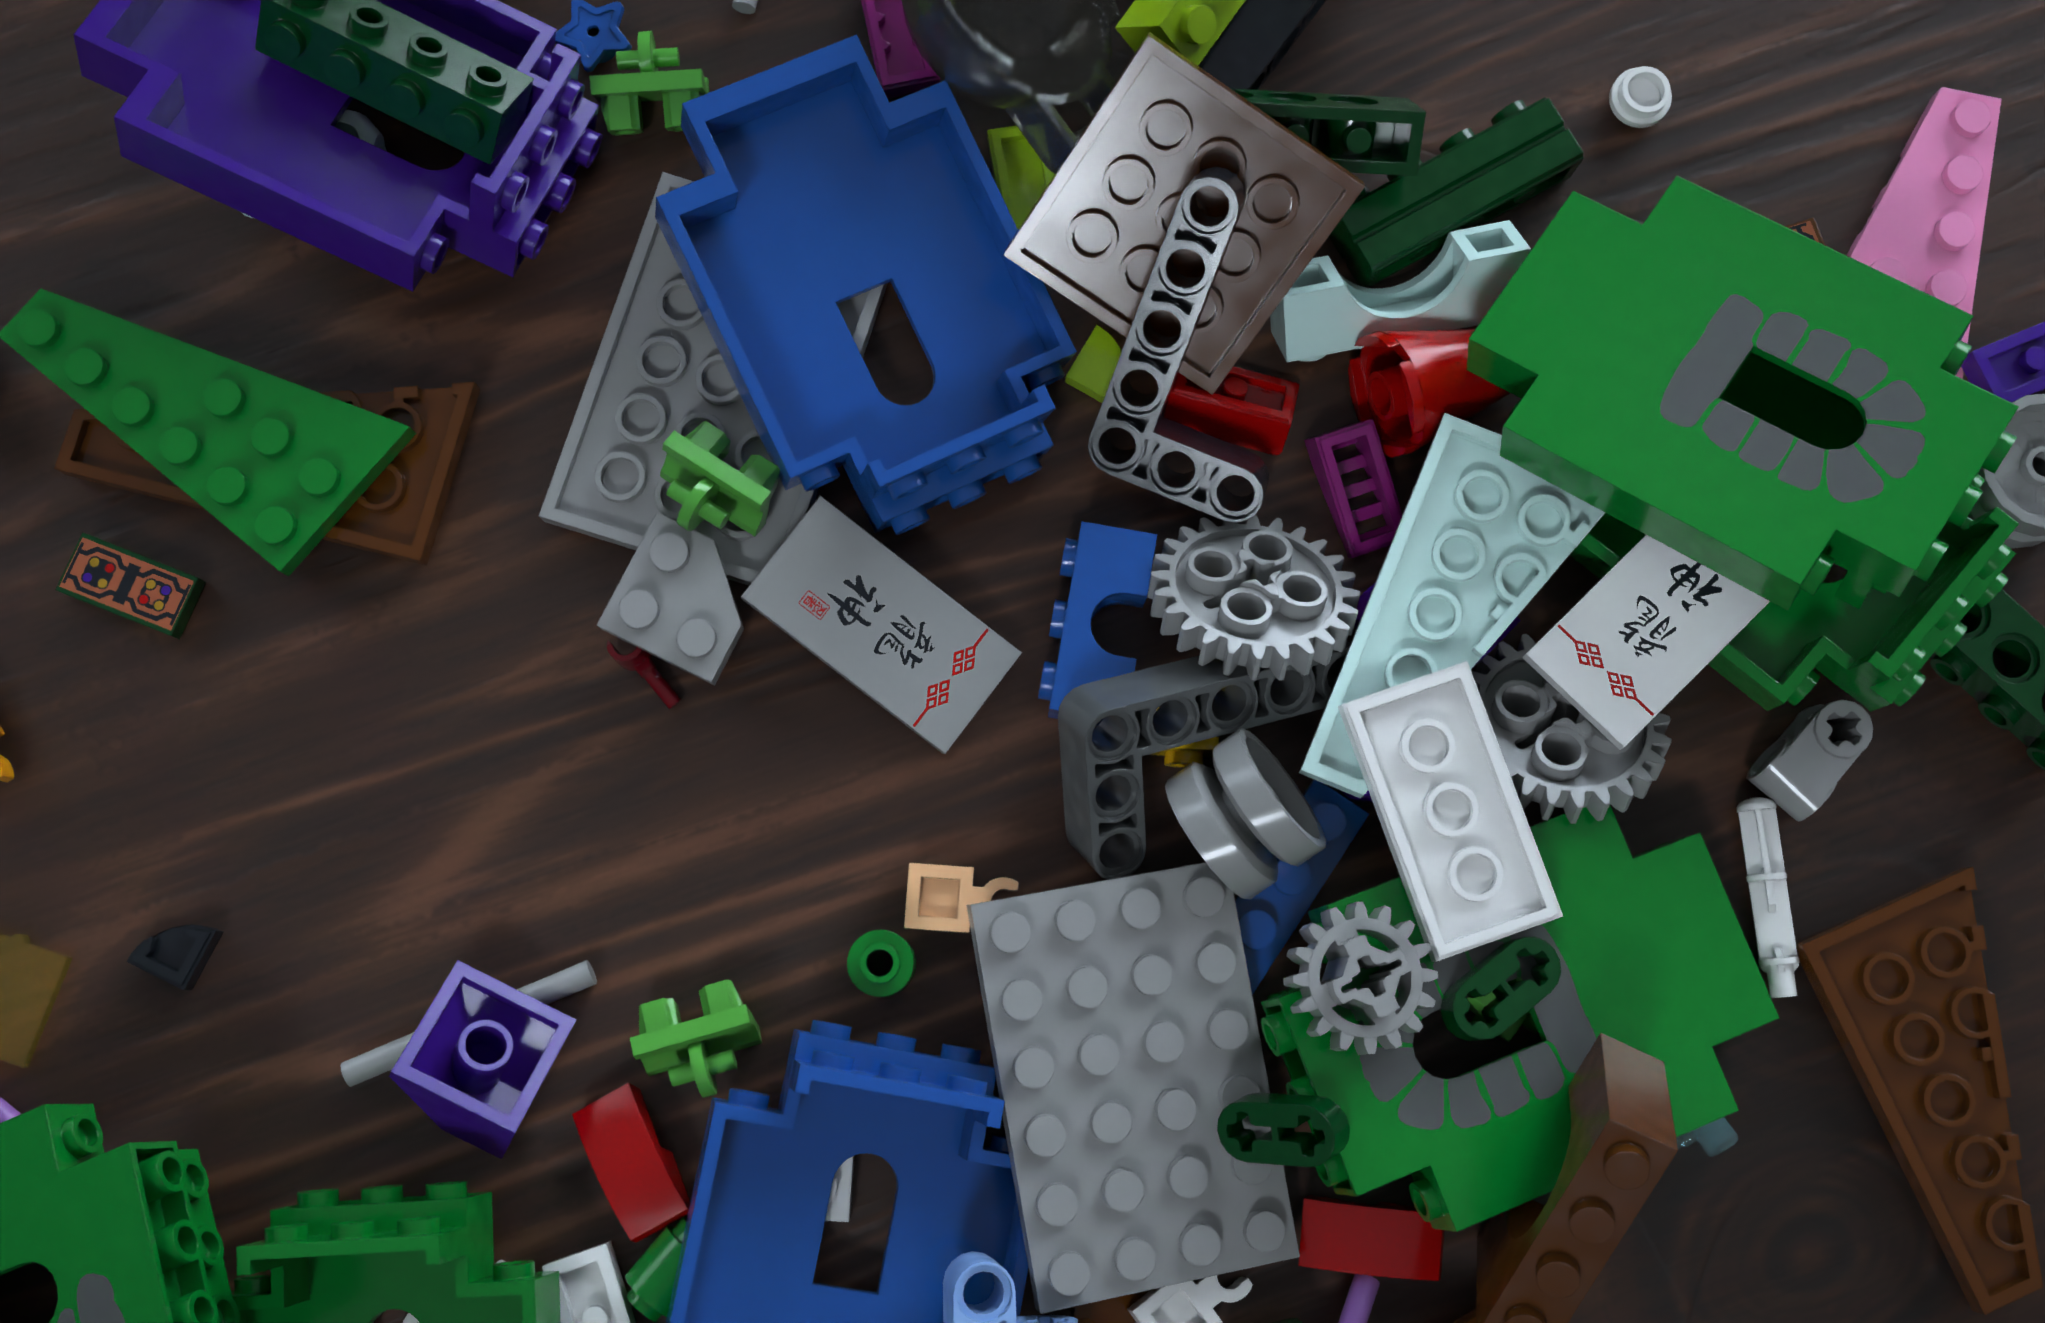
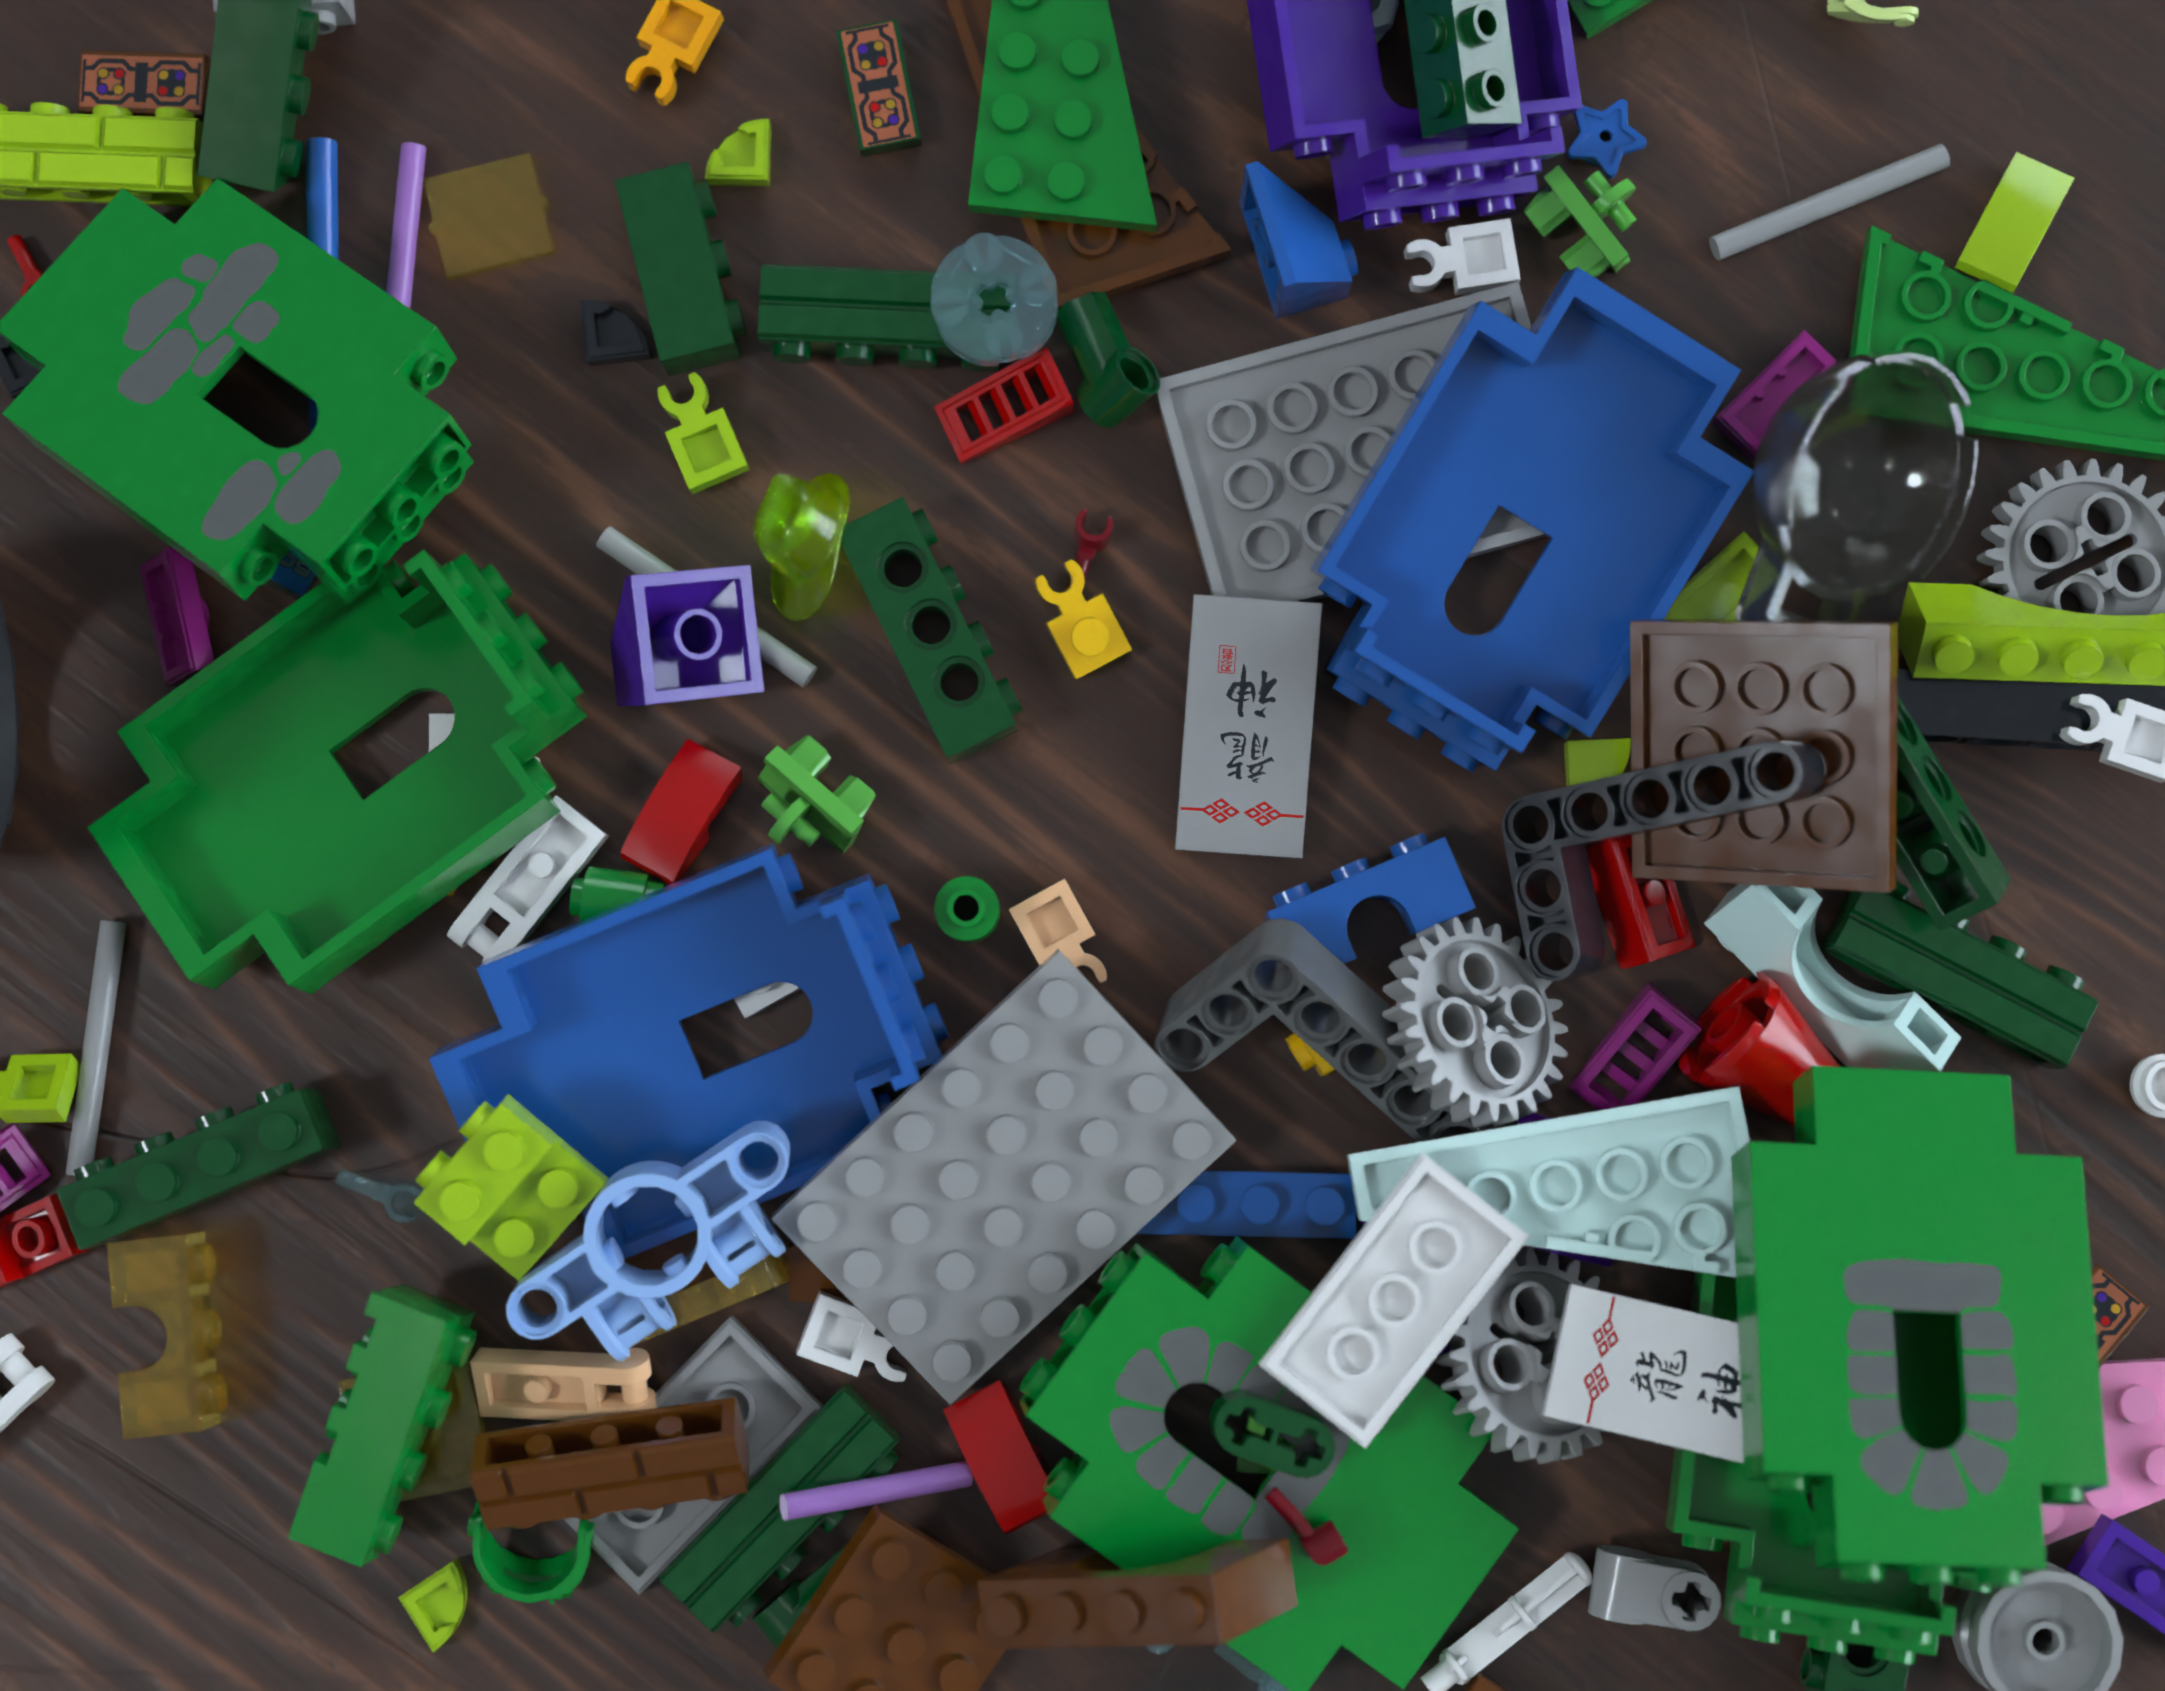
camera: 65 degrees right, 5 degrees up
(106, 740) = (742, 157): none -> lime tile
(160, 854) = (681, 268): none -> dark green brick
(325, 933) = (703, 441): none -> lime plate
(326, 704) = (856, 315): none -> dark green brick
(341, 585) = (989, 263): none -> clear light blue plate
(454, 629) = (1017, 376): none -> red slope
(465, 900) = (801, 538): none -> clear neon green piece
(504, 328) = (1294, 245): none -> blue slope
(511, 544) = (1113, 372): none -> dark green piece
(516, 844) = (872, 547): none -> dark green brick
(618, 196) = (1475, 258): none -> white plate
(676, 601) = (1156, 543): light grey plate -> none
(707, 711) = (1085, 629): none -> yellow plate
(713, 488) = (1268, 509): bright green hips -> none
(1244, 814) = (1283, 1131): light grey wheel -> none
(1282, 1144) = (1030, 1329): dark green beam -> none
(1376, 1000) = (1192, 1332): light grey gear -> none
(1619, 1007) = (1321, 1543): none -> dark red hand

